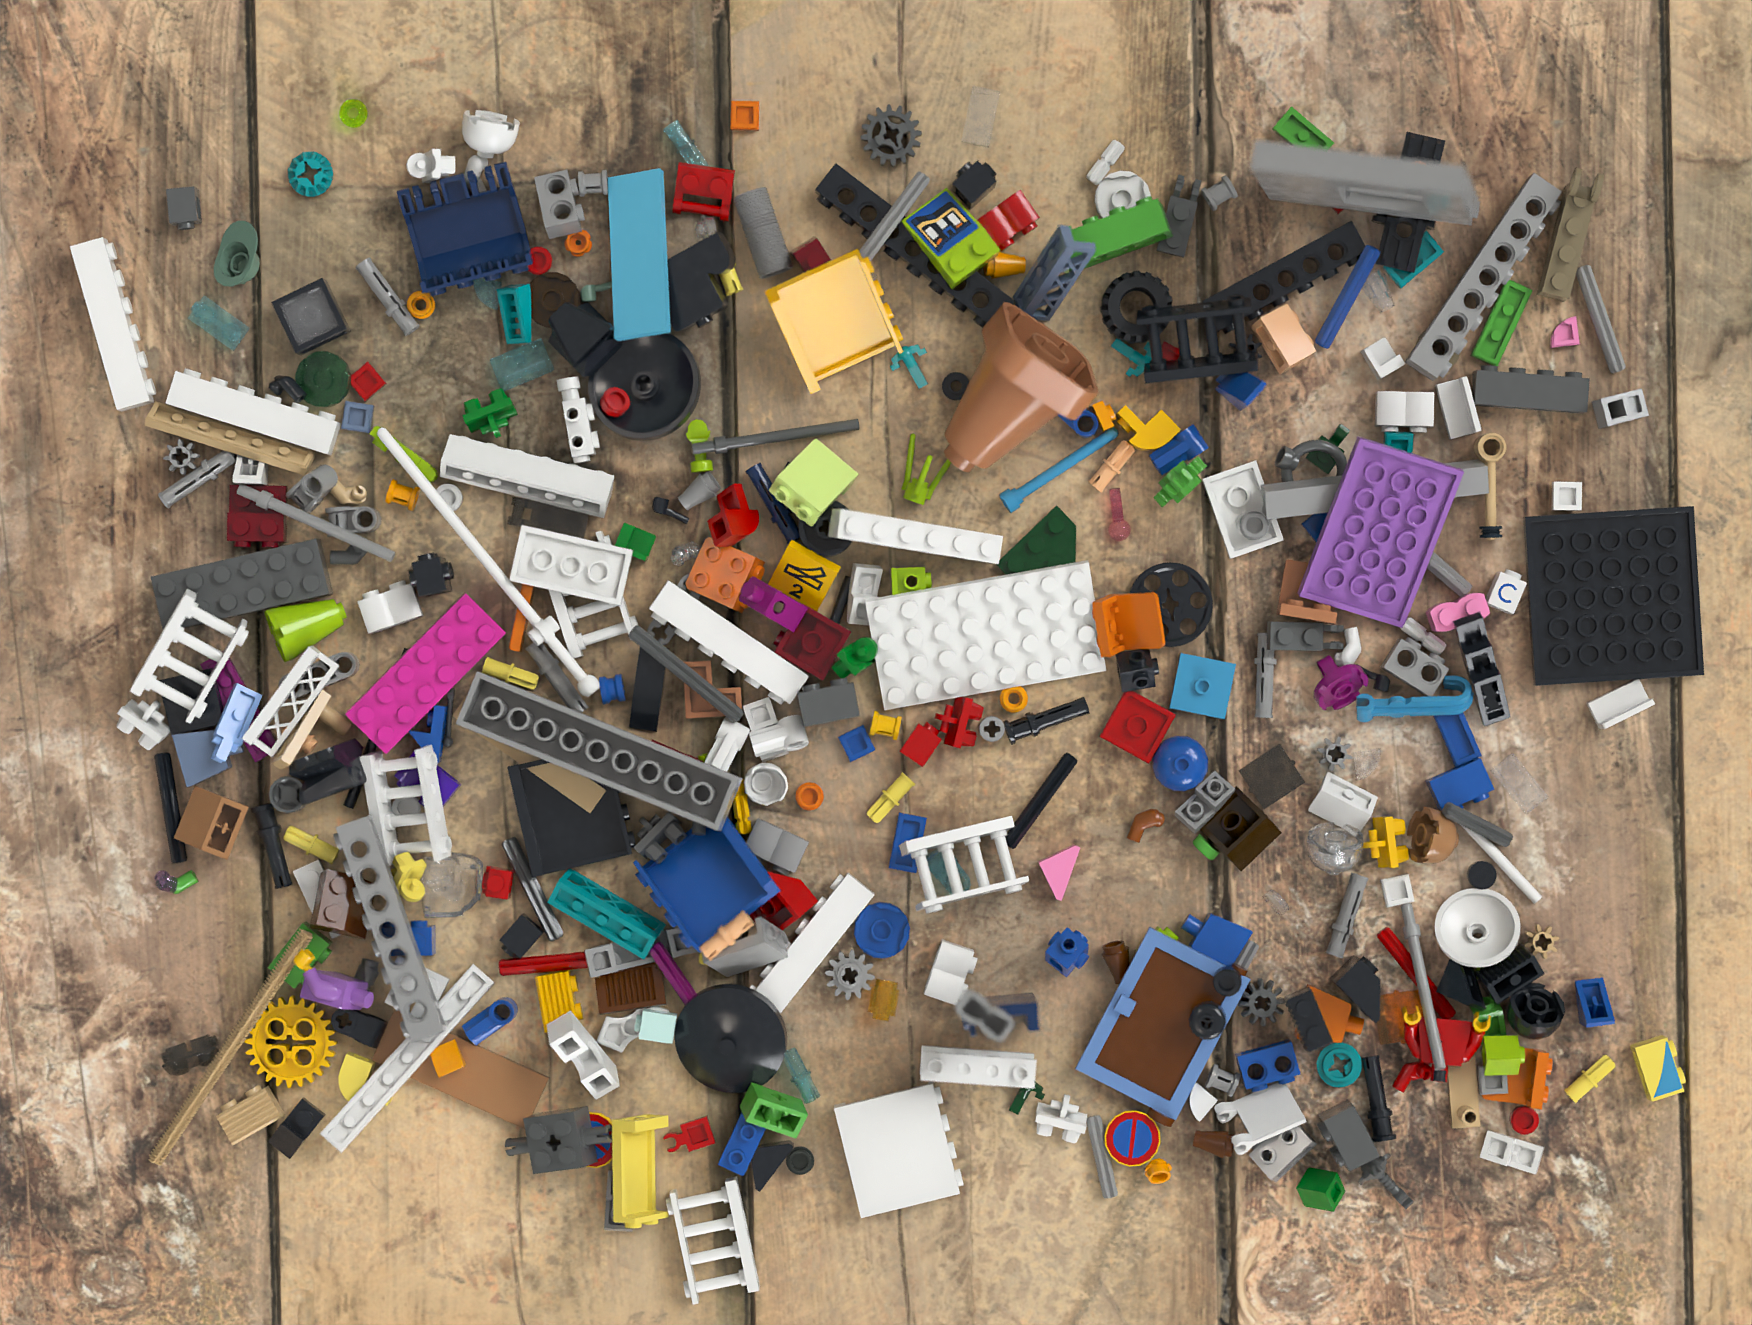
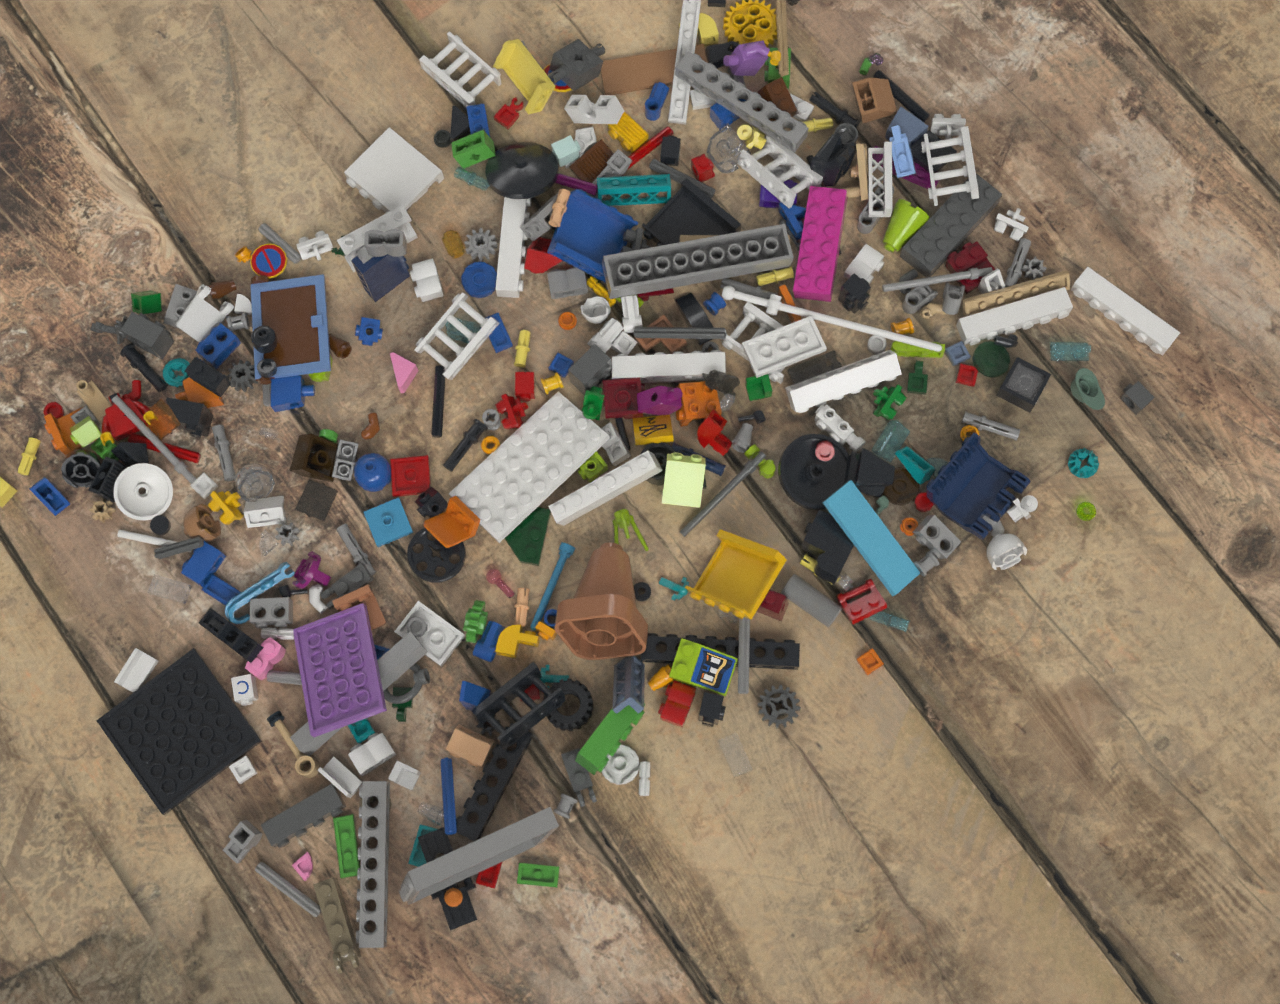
camera: 145 degrees right, 15 degrees down
(159, 523) = (1018, 228): none -> white hips
(435, 414) = (917, 381): none -> dark green plate
(447, 1058) = (664, 66): light orange slope -> none
(680, 573) = (721, 382): none -> clear smoke hinge
(1511, 1152) = (51, 390): white slope -> none

